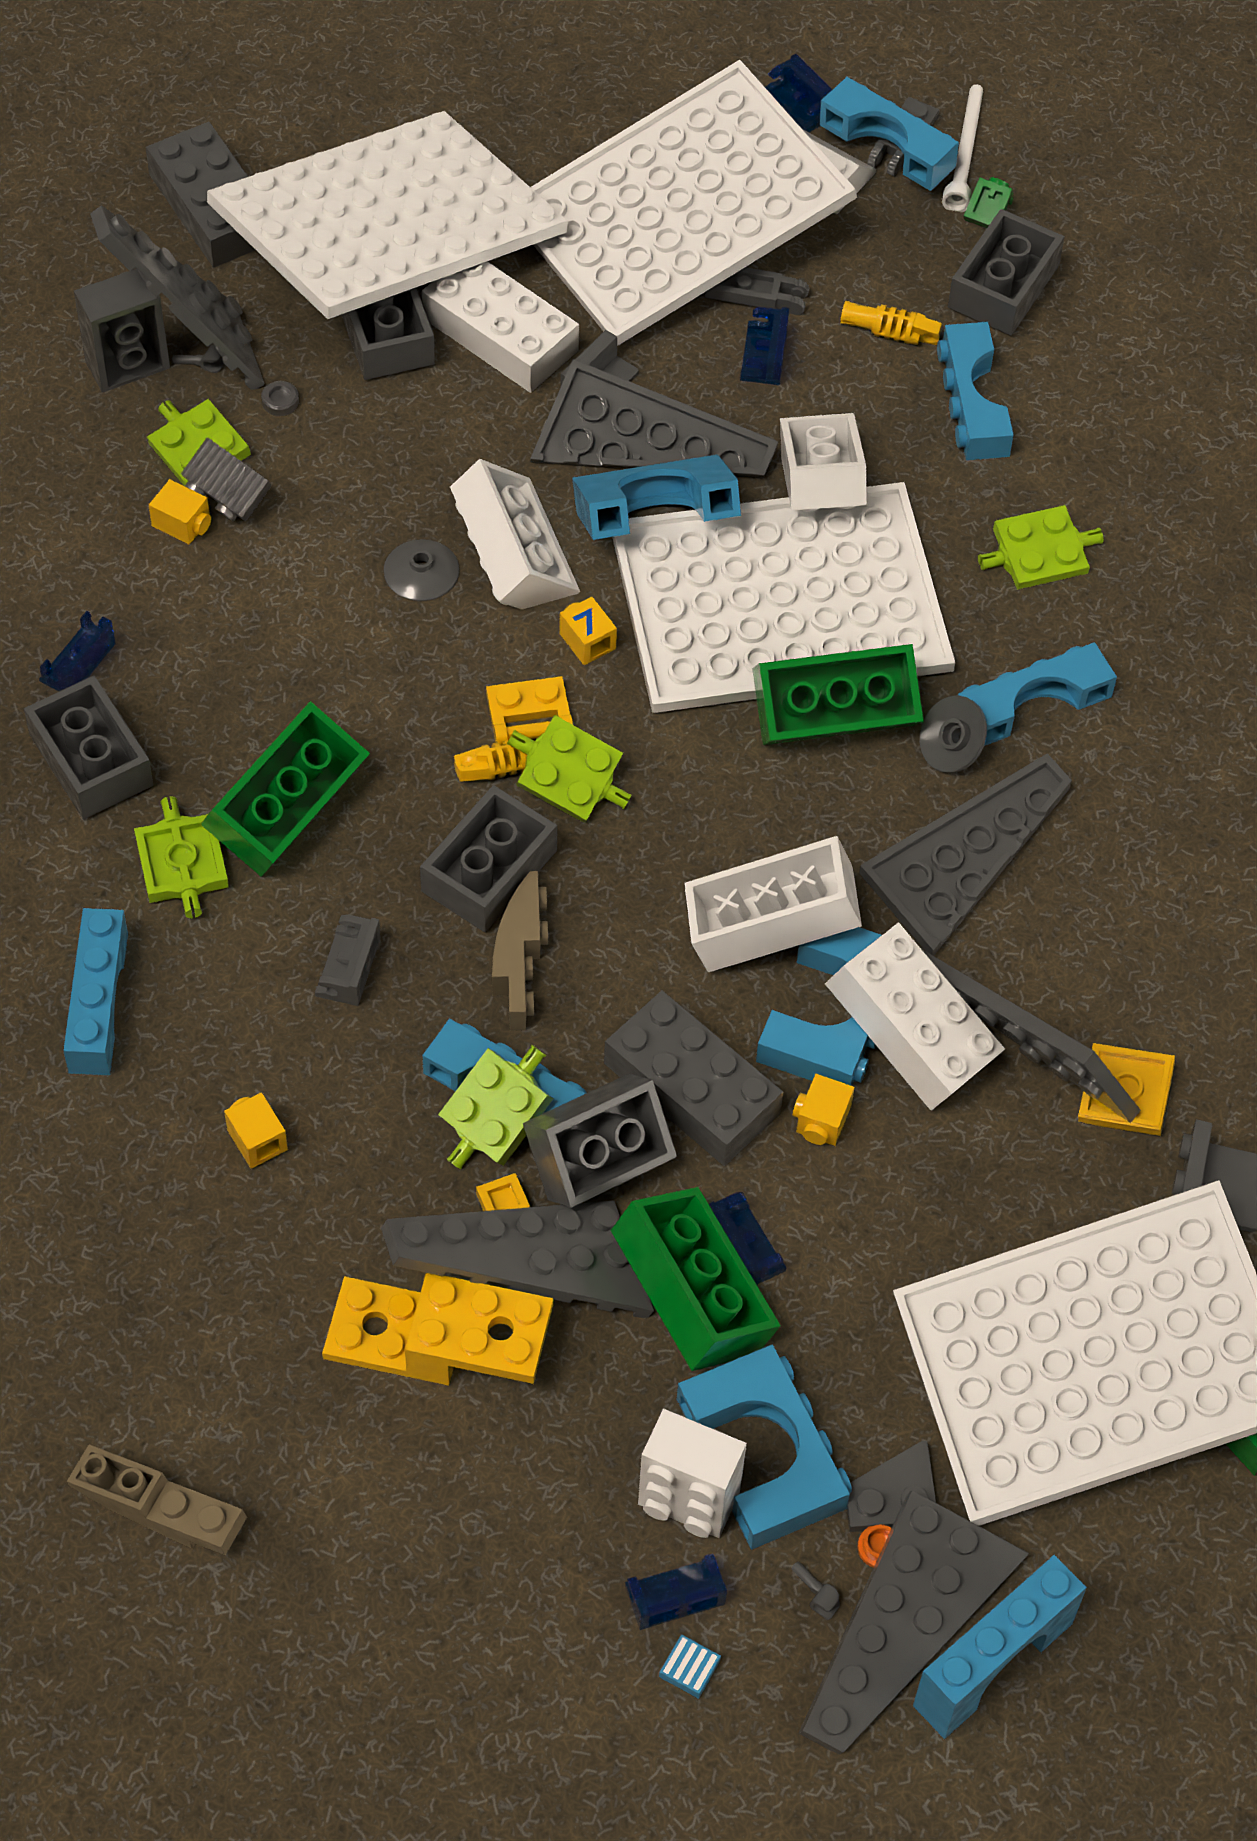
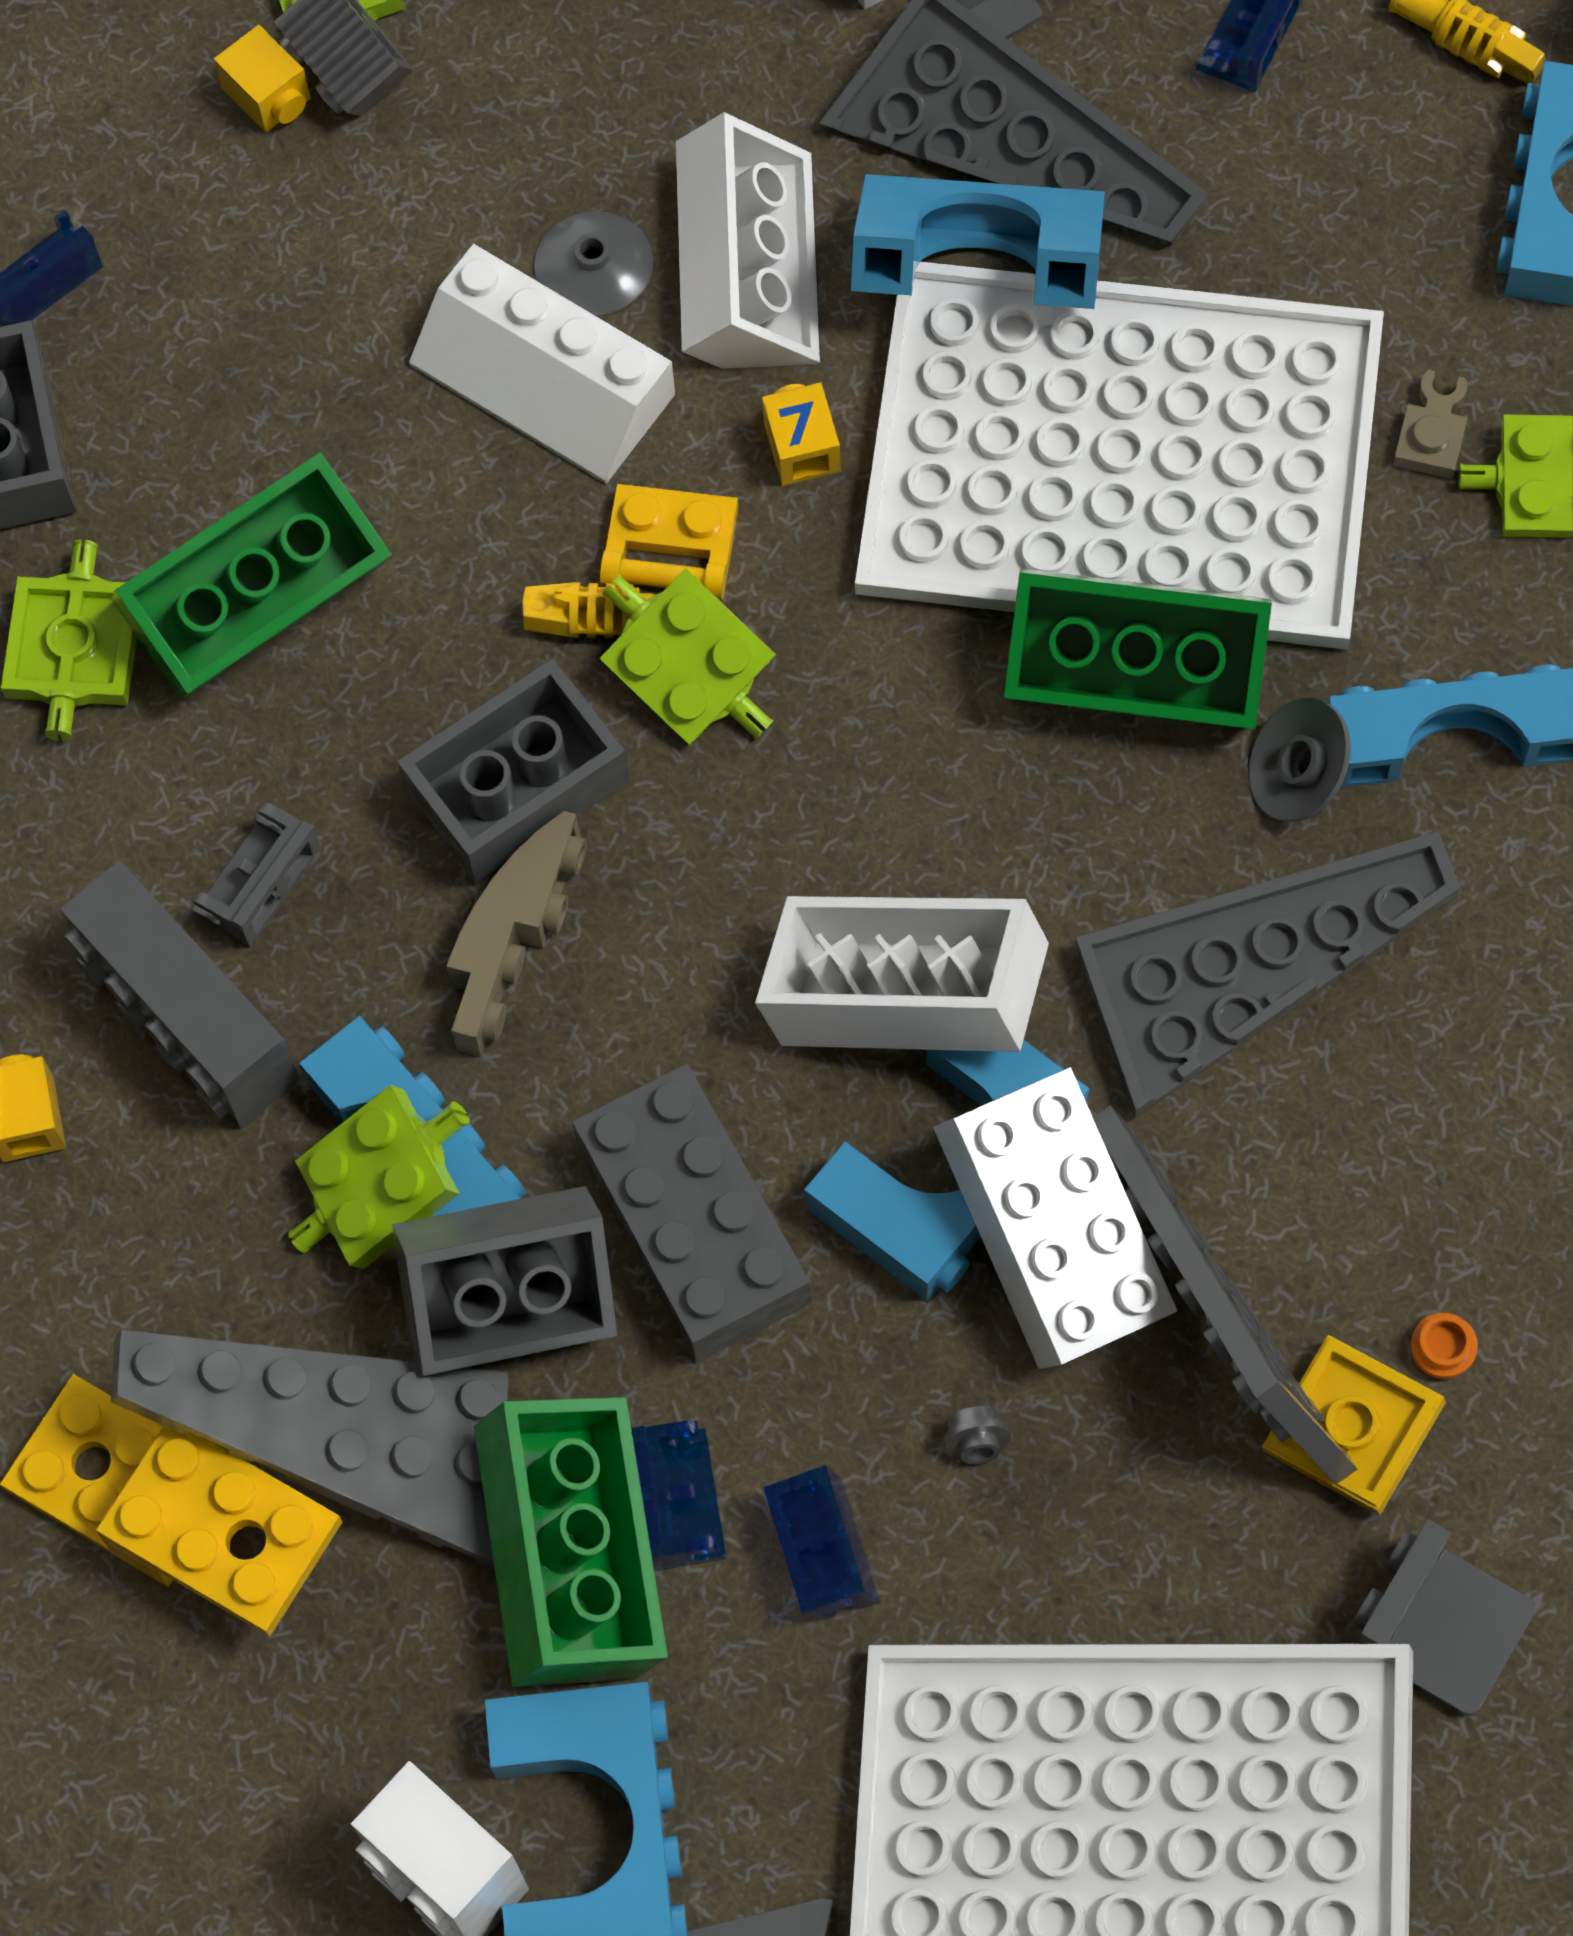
camera: 25 degrees right, 10 degrees up
(333, 1036) = (178, 996): none -> dark grey brick
(415, 629) = (542, 364): none -> white slope
(502, 1194) = (345, 1322): yellow plate -> none
(823, 462) = (1258, 249): white brick -> none
(823, 1110) = (870, 1323): yellow brick -> none
(843, 1239) = (821, 1543): none -> clear blue hinge
(910, 1155) = (976, 1435): none -> flat silver plate
(954, 543) = (1432, 434): none -> dark tan plate
(1160, 1032) = (1444, 1345): none -> orange plate

